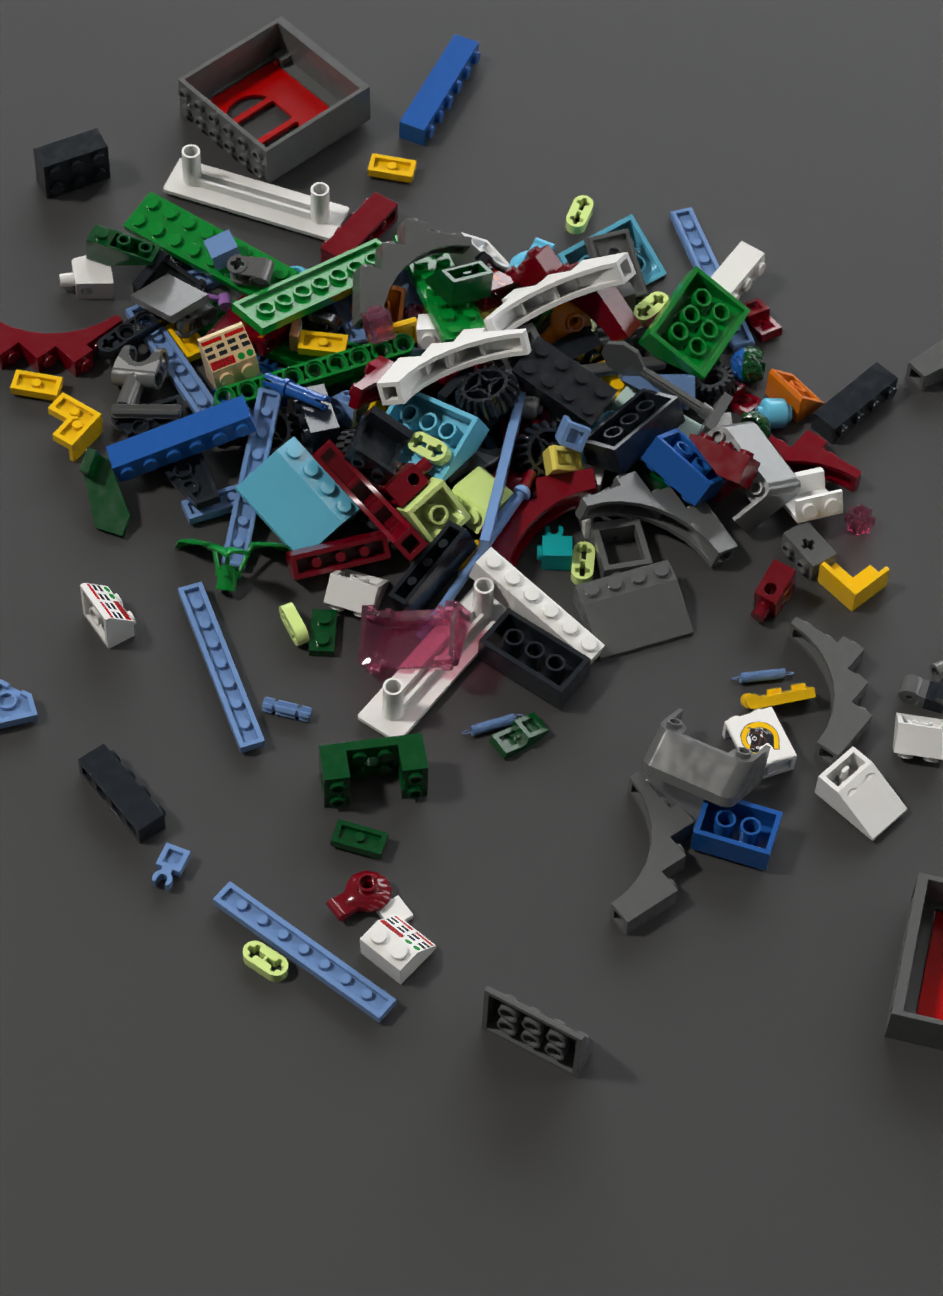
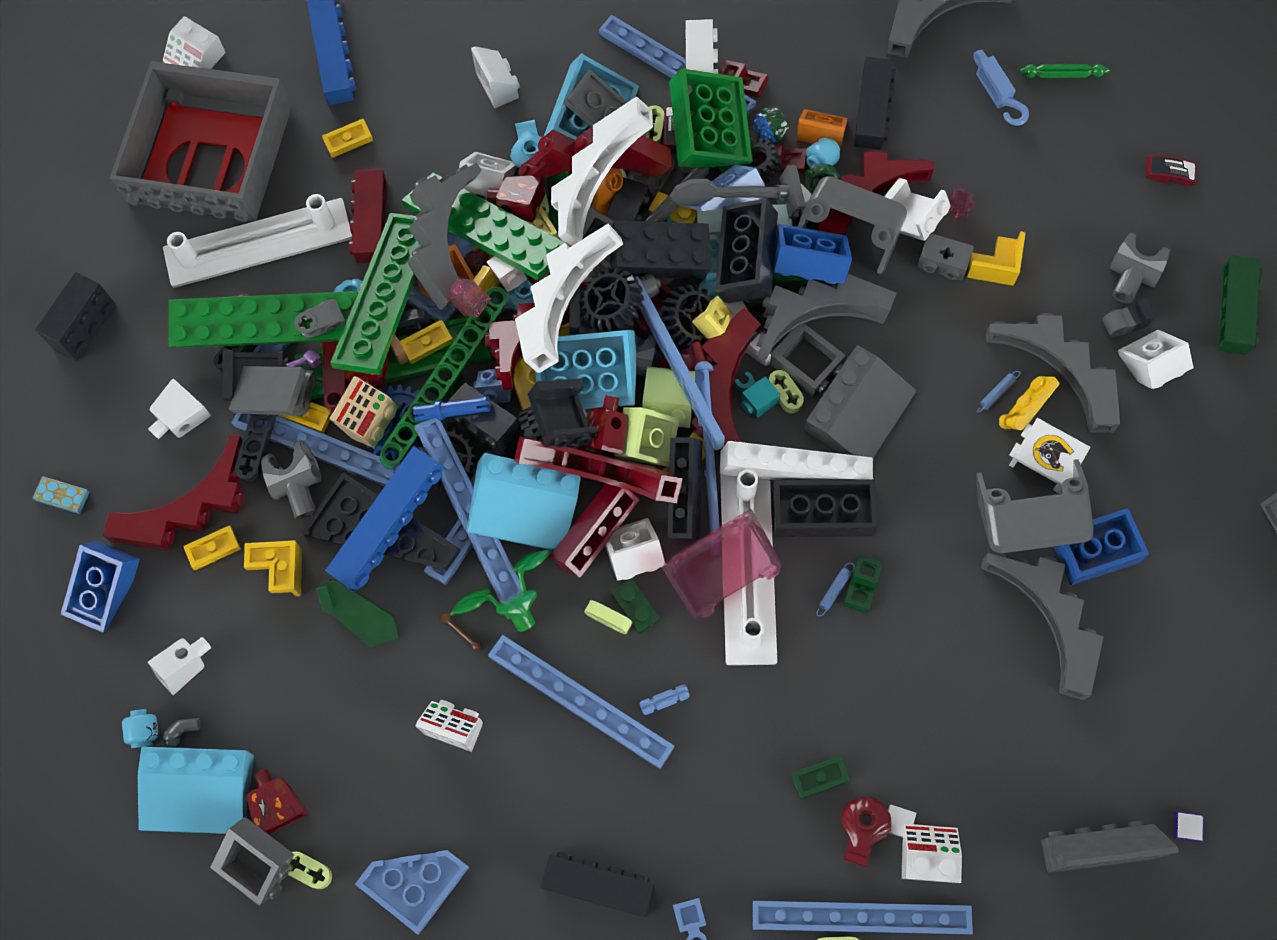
camera: 30 degrees left, 15 degrees up
(118, 248) = (187, 373): dark green slope -> none
(146, 411) = (329, 508): dark grey axle -> none
(169, 547) = (446, 619): none -> reddish brown hinge
(221, 248) = (279, 315): medium blue panel -> none
(328, 29) = (192, 46): none -> white slope
(373, 757) = (808, 679): dark green plate -> none
(431, 445) = (604, 389): yellowish green beam -> none
(462, 283) = (507, 211): dark green slope -> none
(487, 259) = (500, 174): black hand -> none
(550, 192) = (495, 76): none -> white slope
(572, 434) = (709, 292): medium blue panel -> none
(584, 215) = (526, 80): yellowish green beam -> none
(626, 1073) = (1188, 827): none -> white tile
(729, 464) = (849, 230): dark red slope -> none
(773, 591) = (953, 313): dark red torso -> none
(860, 793) = (1157, 443): white slope -> none

